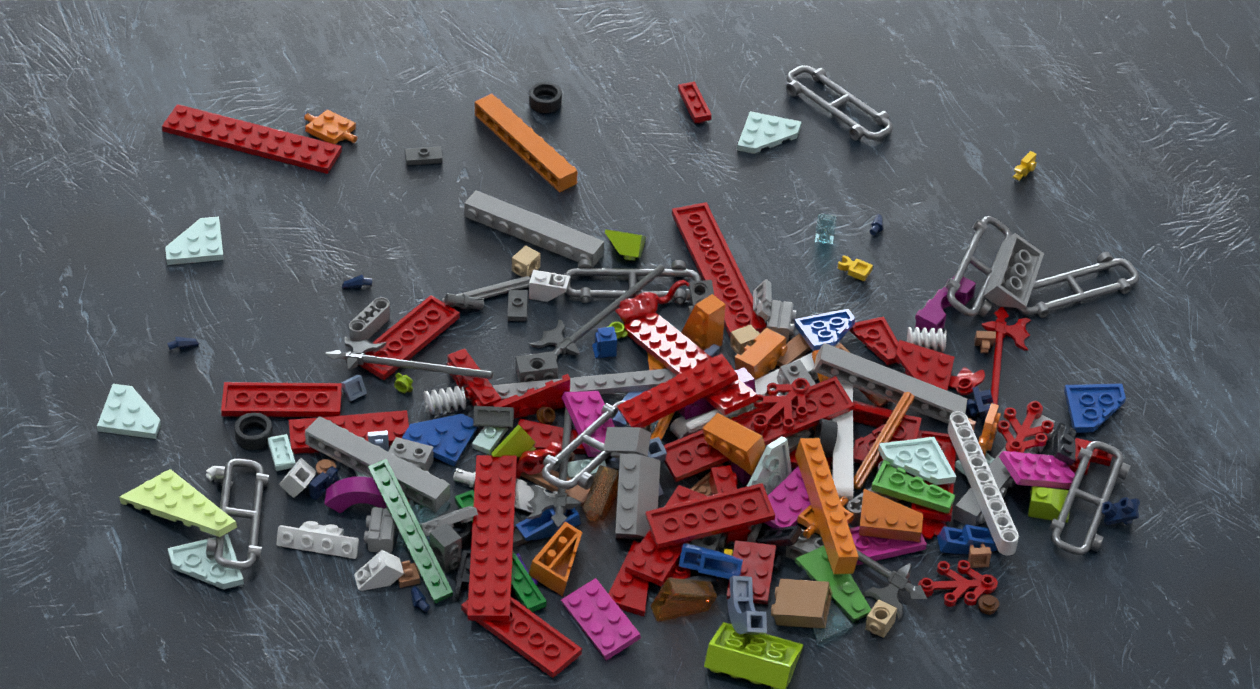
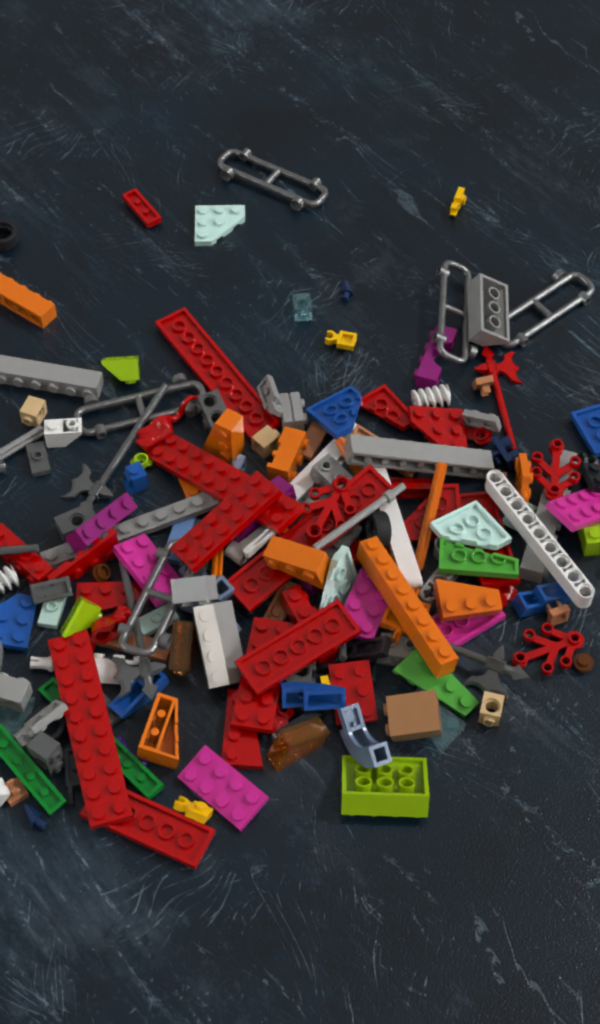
camera: 15 degrees left, 10 degrees up
(569, 630) = (197, 810): none -> yellow plate
(573, 365) = (101, 522): none -> magenta arch
(842, 408) = (387, 497): none -> light grey bar
(965, 368) = (477, 419): none -> light grey plate

